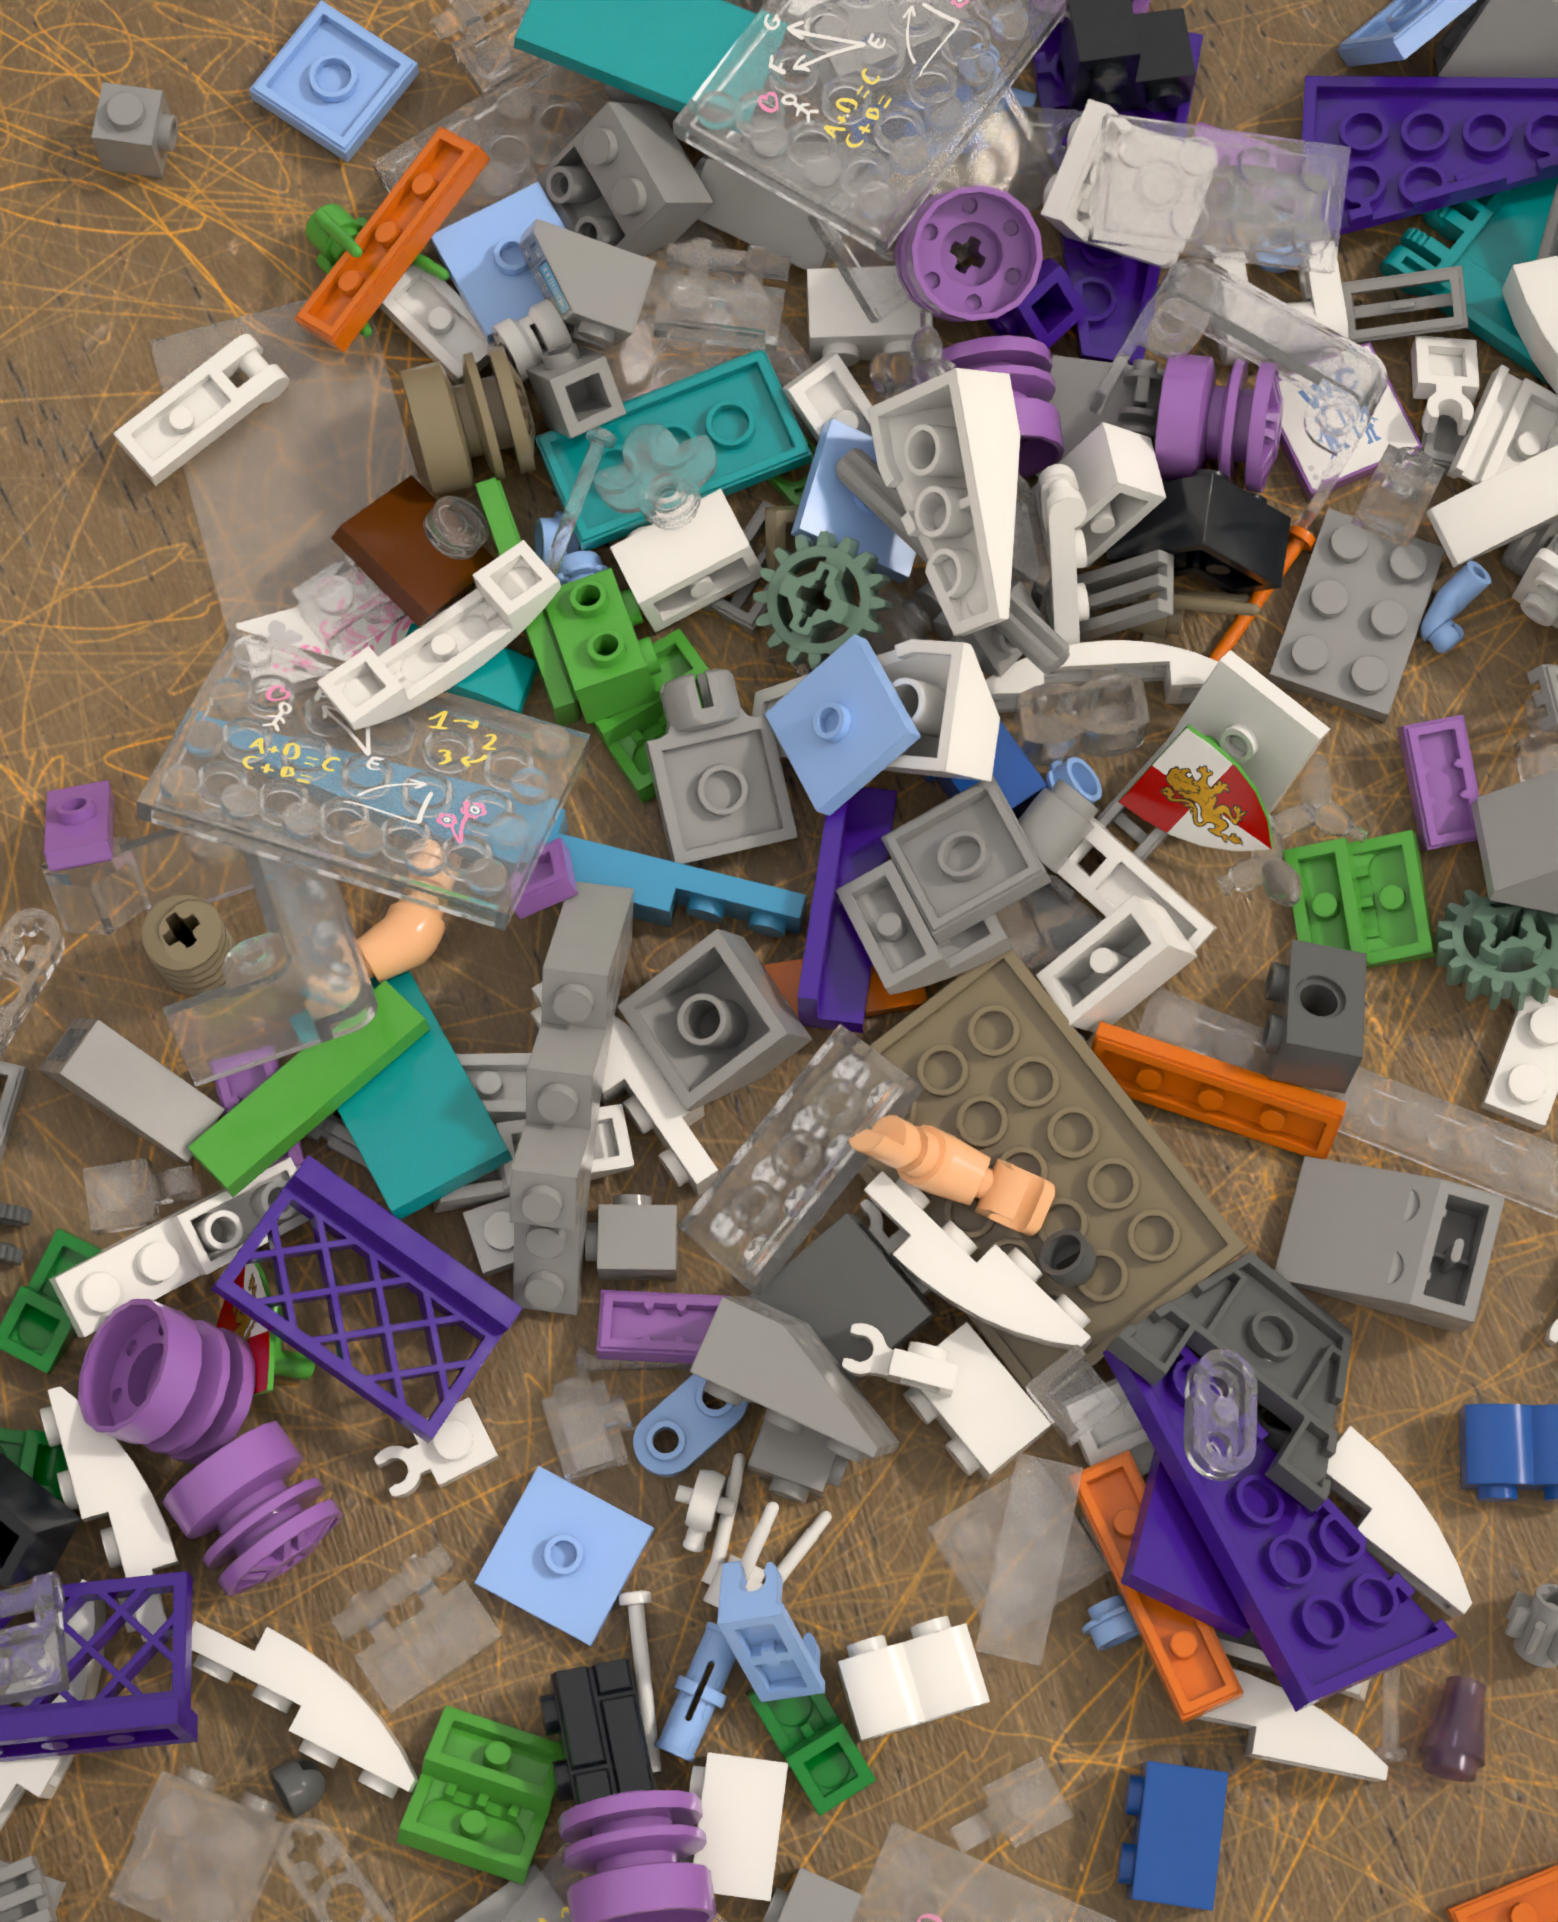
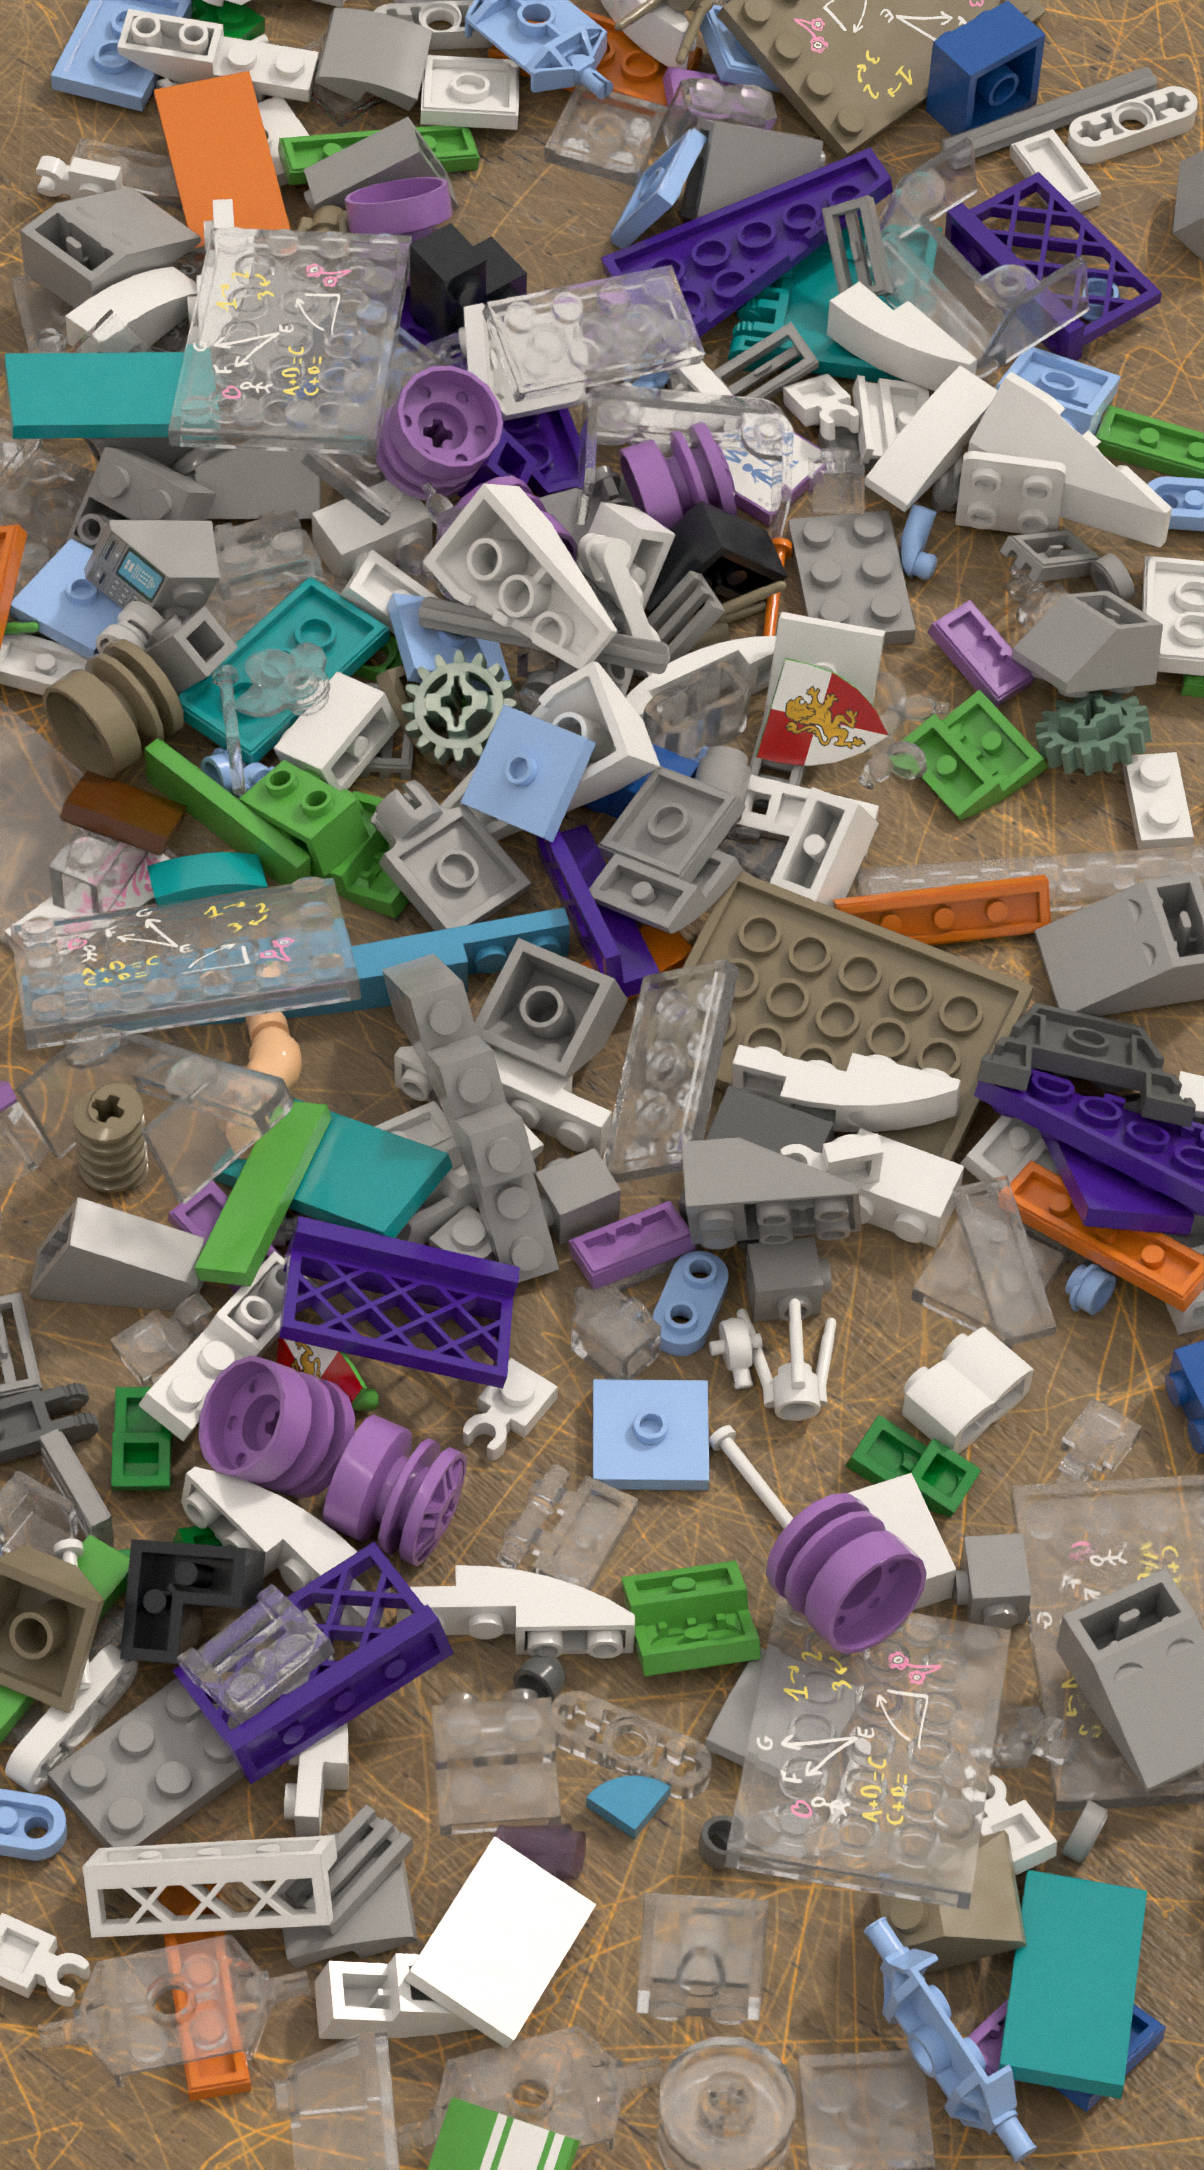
camera: 30 degrees left, 20 degrees down
(446, 648) = (195, 853): white slope -> none
(456, 527) = (145, 786): clear tile -> none
(550, 881) = (371, 967): medium lavender tile -> none
(598, 1732) = (743, 1520): black brick -> none
(683, 1736) = (807, 1444): light blue pin -> none
(766, 1638) = (847, 1386): light blue hinge -> none
(958, 1172) = (798, 1023): light nougat piece -> none
(1068, 1258) = (910, 1046): dark grey hinge -> none
(1072, 1396) = (967, 1135): clear panel -> none
(1222, 1420) = (1086, 1086): clear plate -> none
(1316, 1016) = (988, 827): dark grey brick -> none

